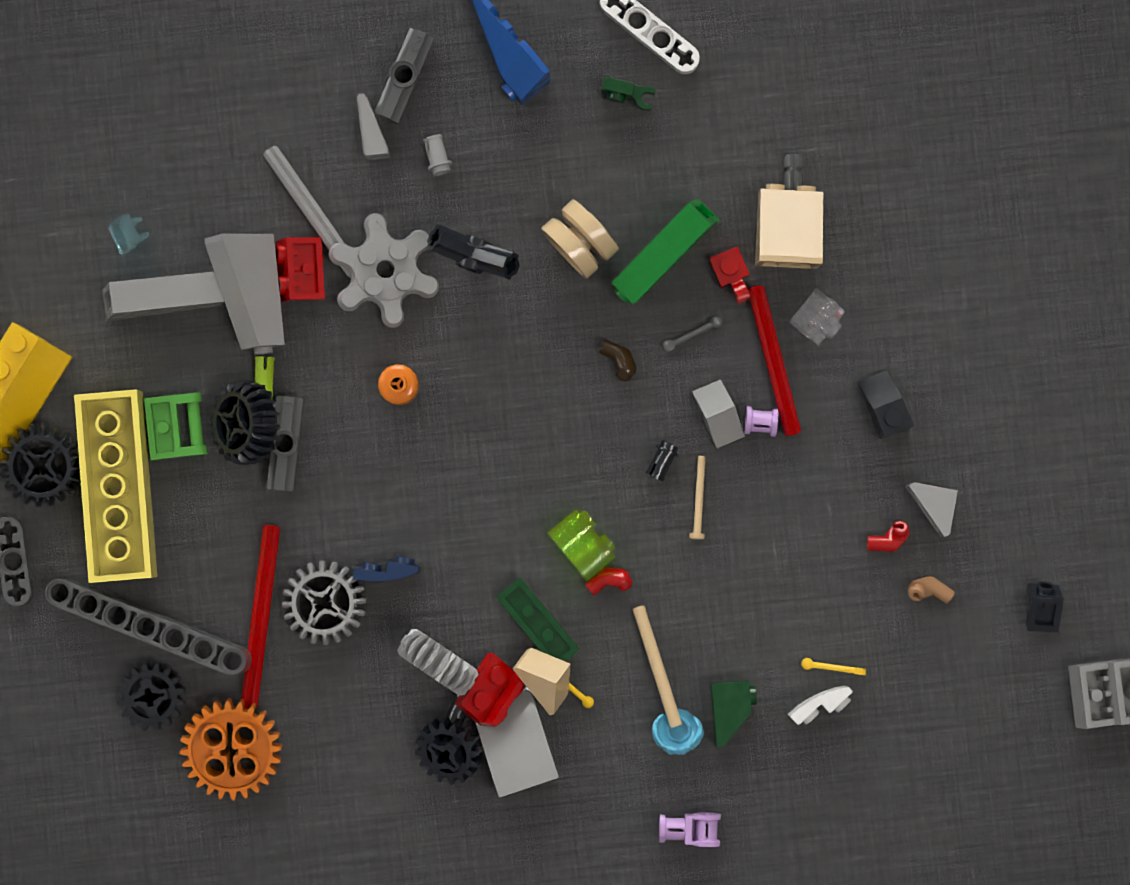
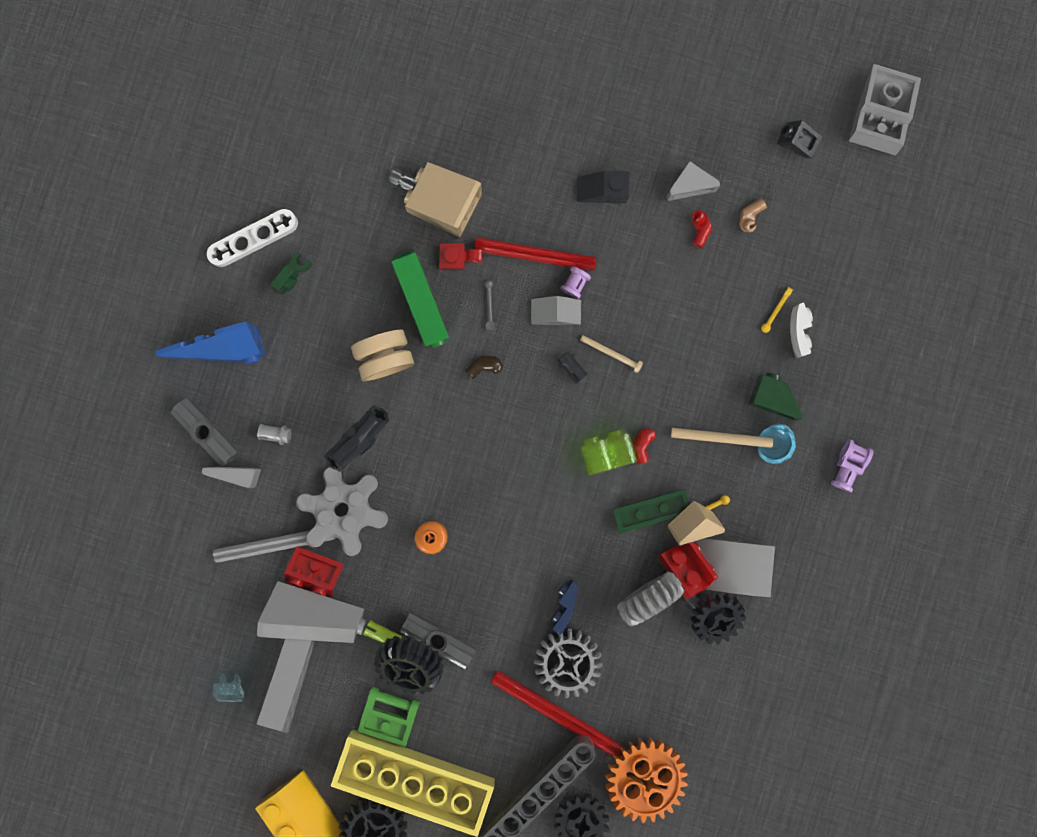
camera: 70 degrees left, 0 degrees up
(818, 317) = (518, 207): clear brick -> none

